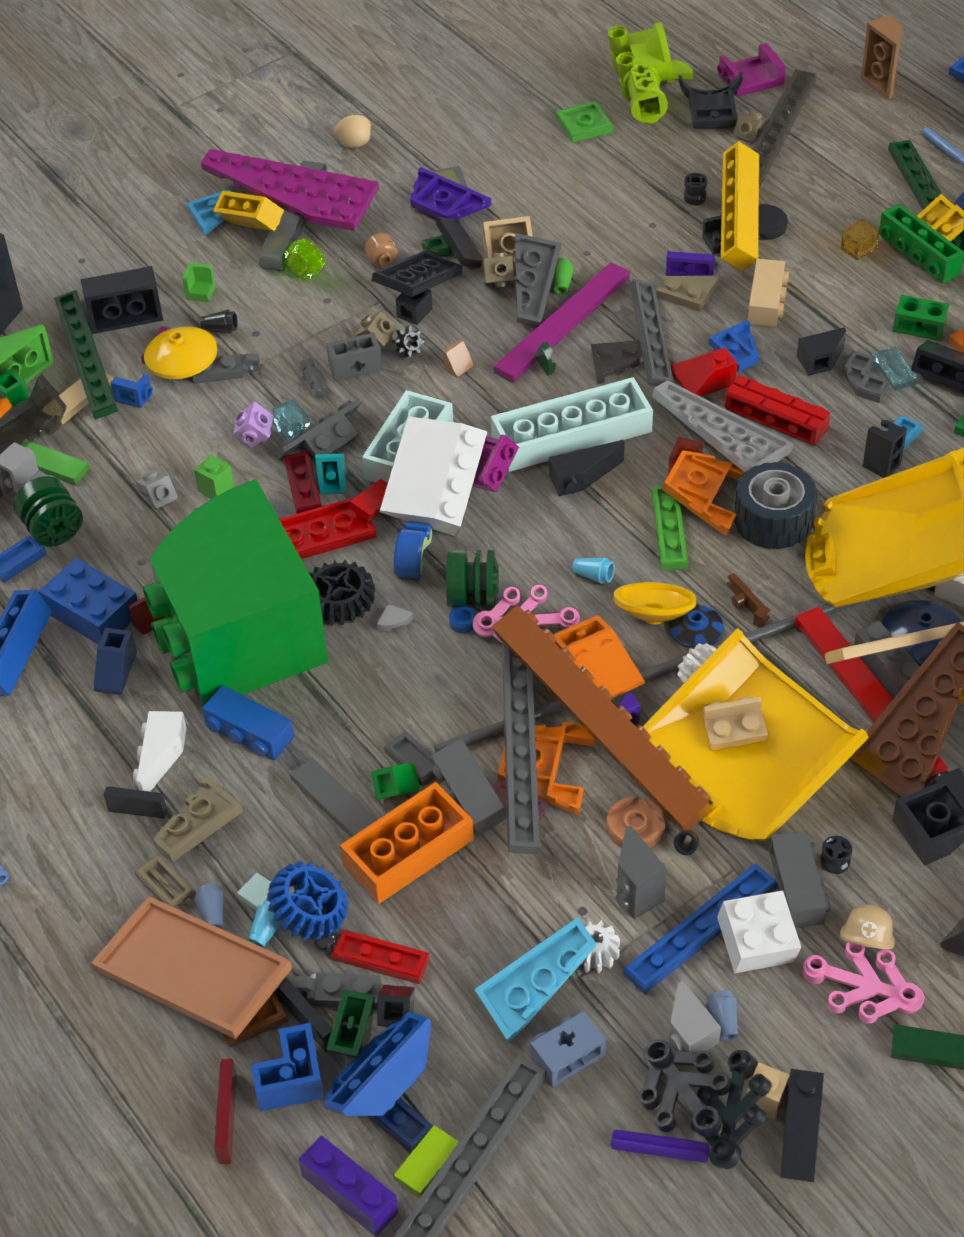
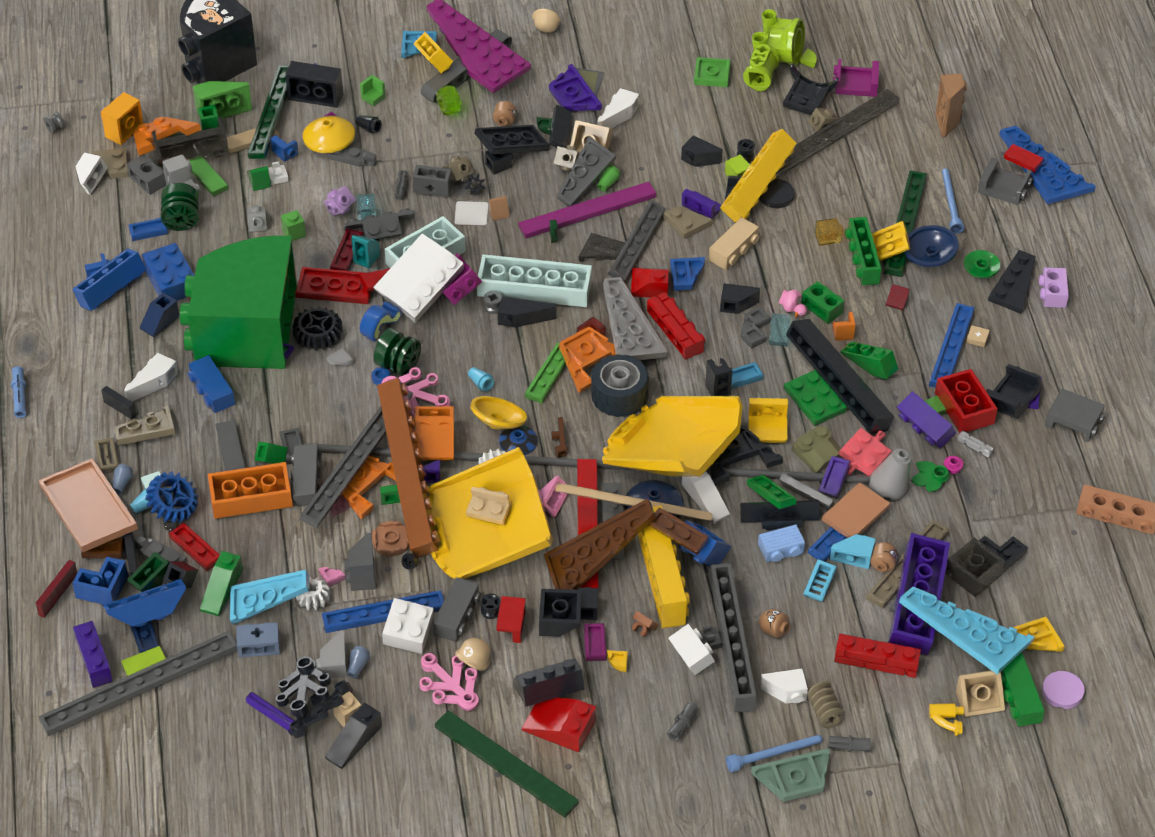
camera: 25 degrees right, 0 degrees up
(125, 437) = (259, 178): none -> green slope
(144, 424) = (277, 173): none -> white tile
(424, 378) = (471, 213): none -> white sticker
(458, 992) = (224, 575): none -> slope
(514, 192) = (620, 109): none -> white slope
(536, 470) = (492, 301): none -> flat silver wheel
(594, 765) = (389, 494): none -> green plate
(594, 910) = (331, 576): none -> bright pink tile
(647, 208) = (700, 152): none -> black slope
(702, 207) = (736, 166): none -> lime brick
(798, 669) = (550, 498): none -> bright pink slope
(879, 856) = (512, 616): none -> red panel
(885, 331) = (789, 301): none -> bright pink animal

